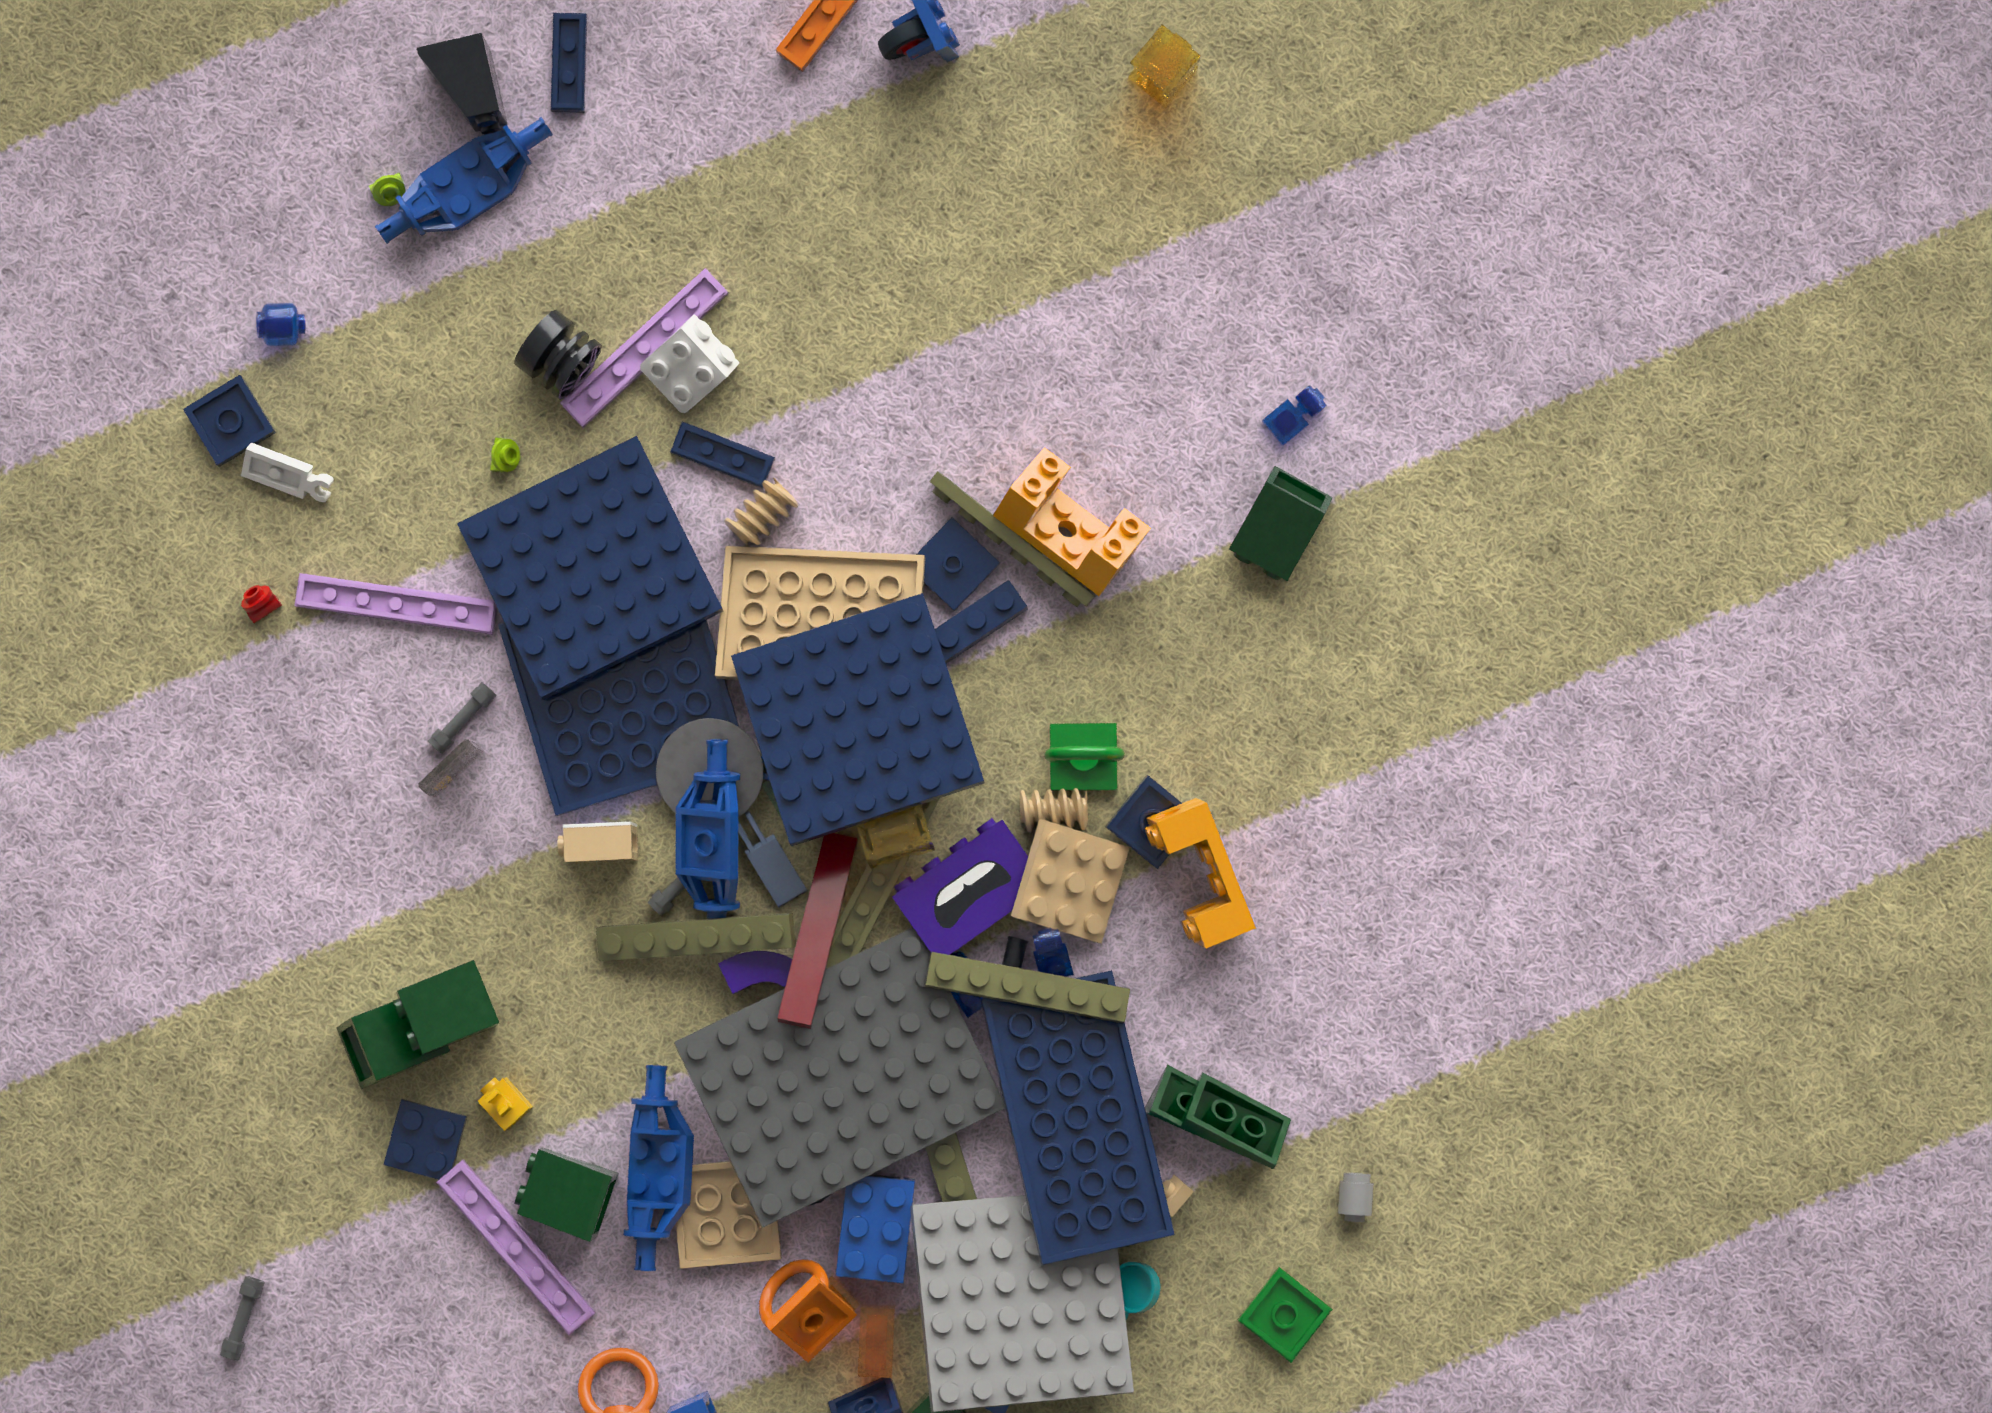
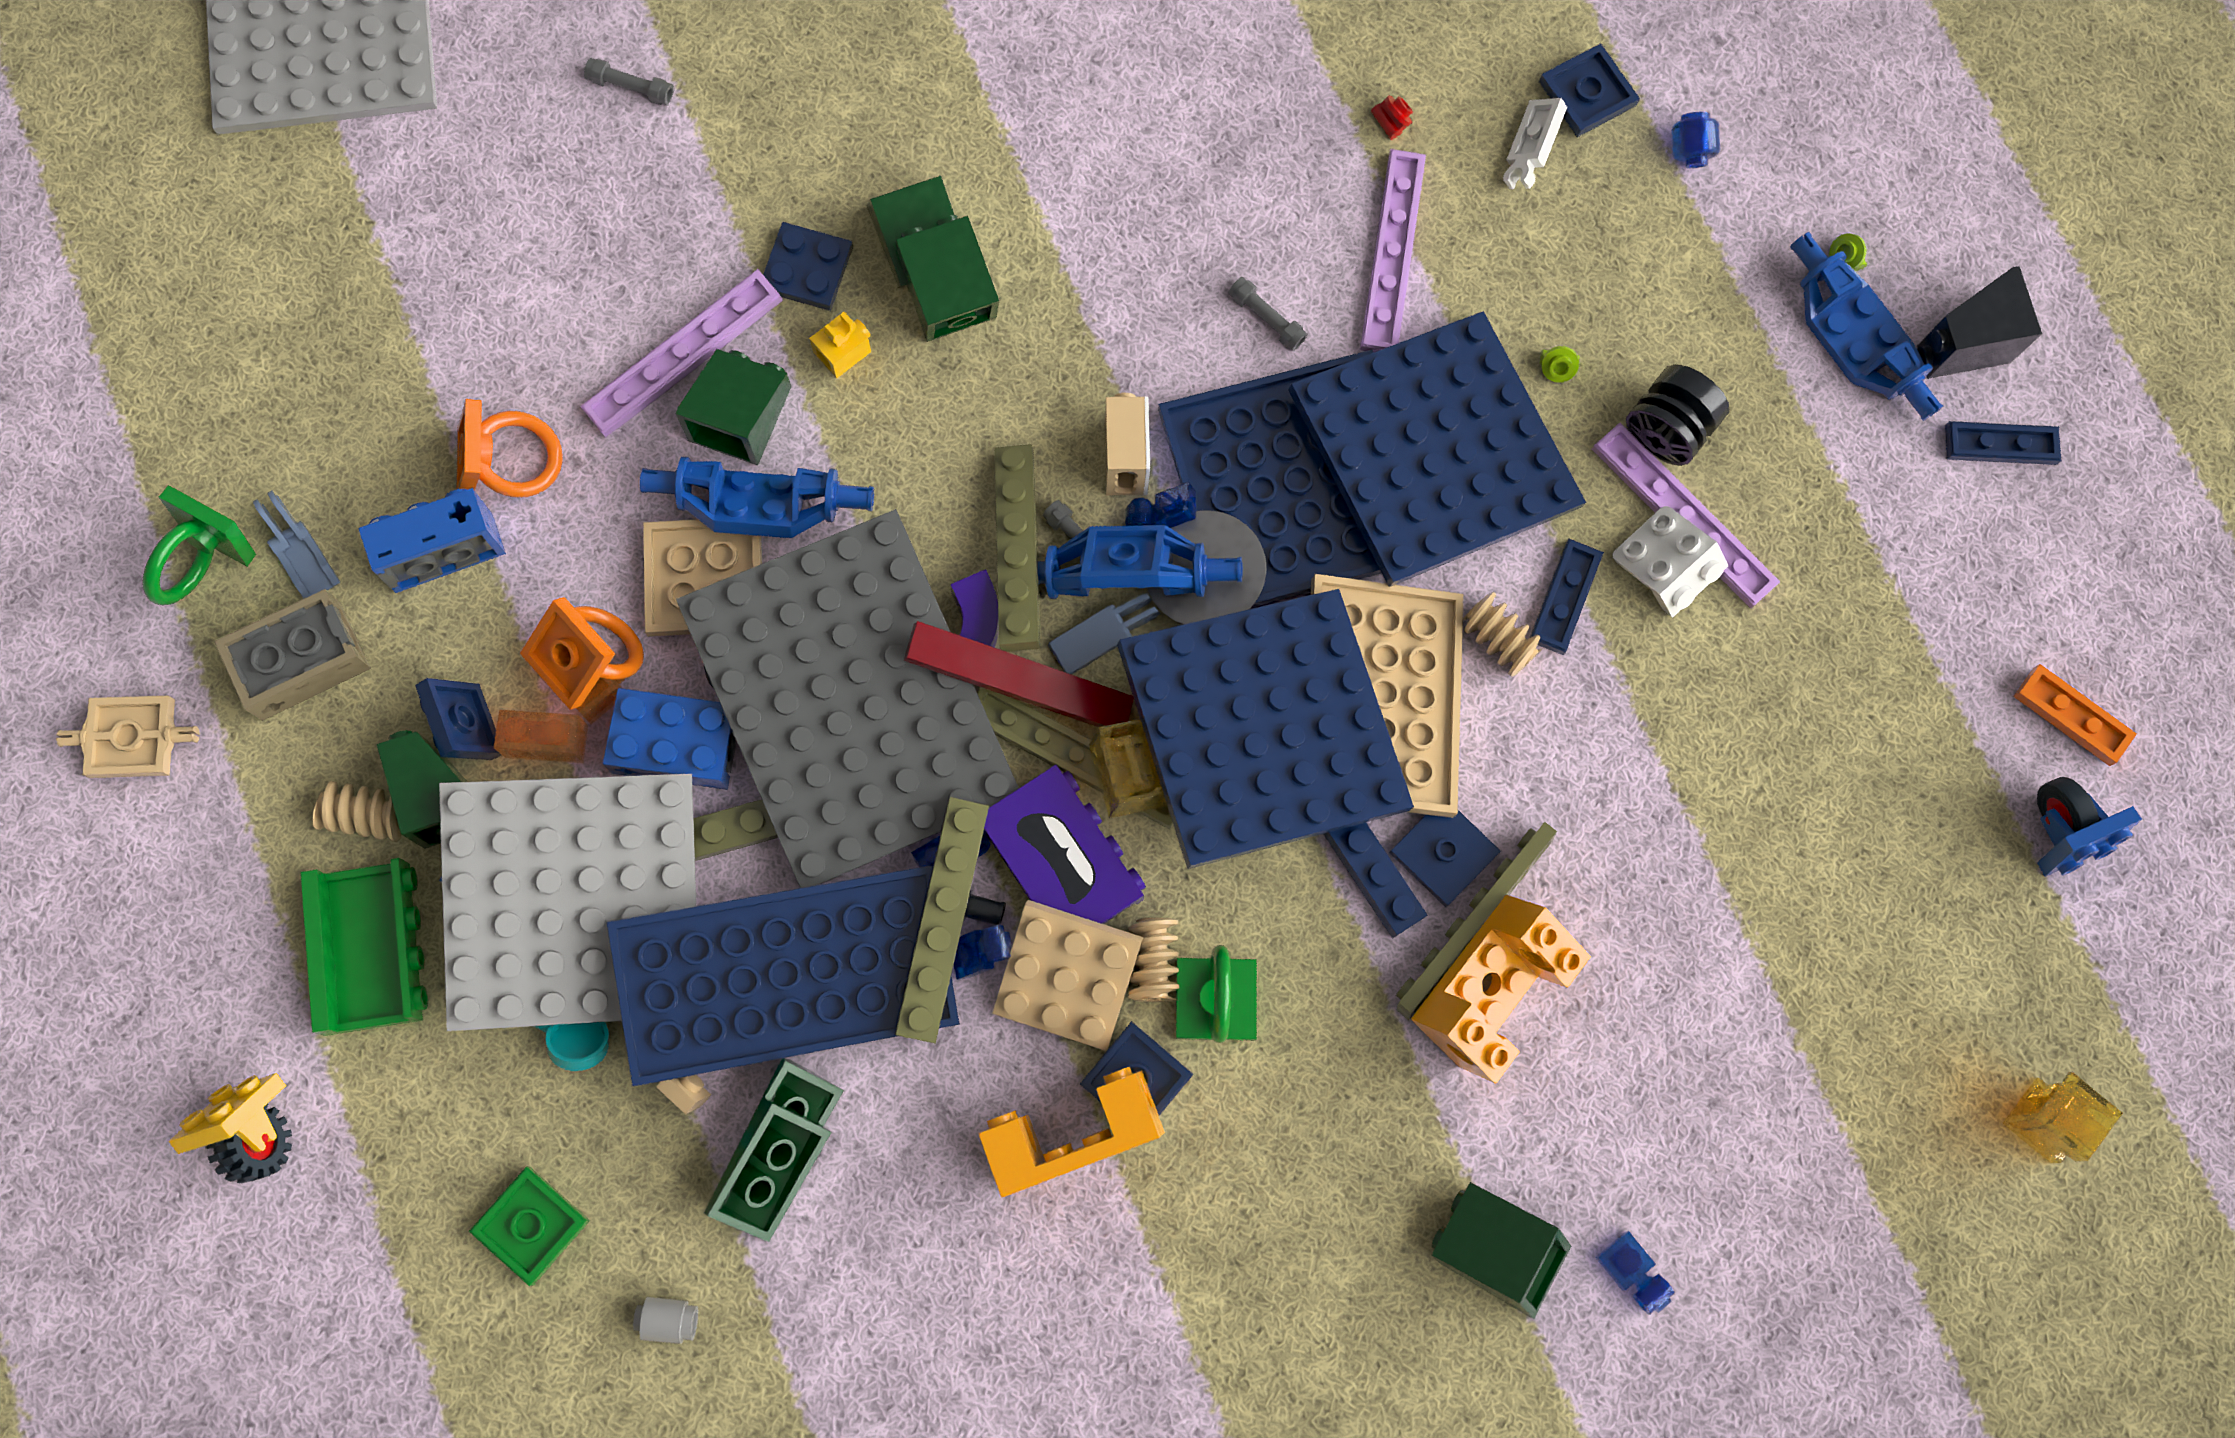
camera: 85 degrees right, 10 degrees down
(450, 768) = (1213, 292): clear smoke tile -> none
(656, 801) = (1171, 508): none -> clear blue plate

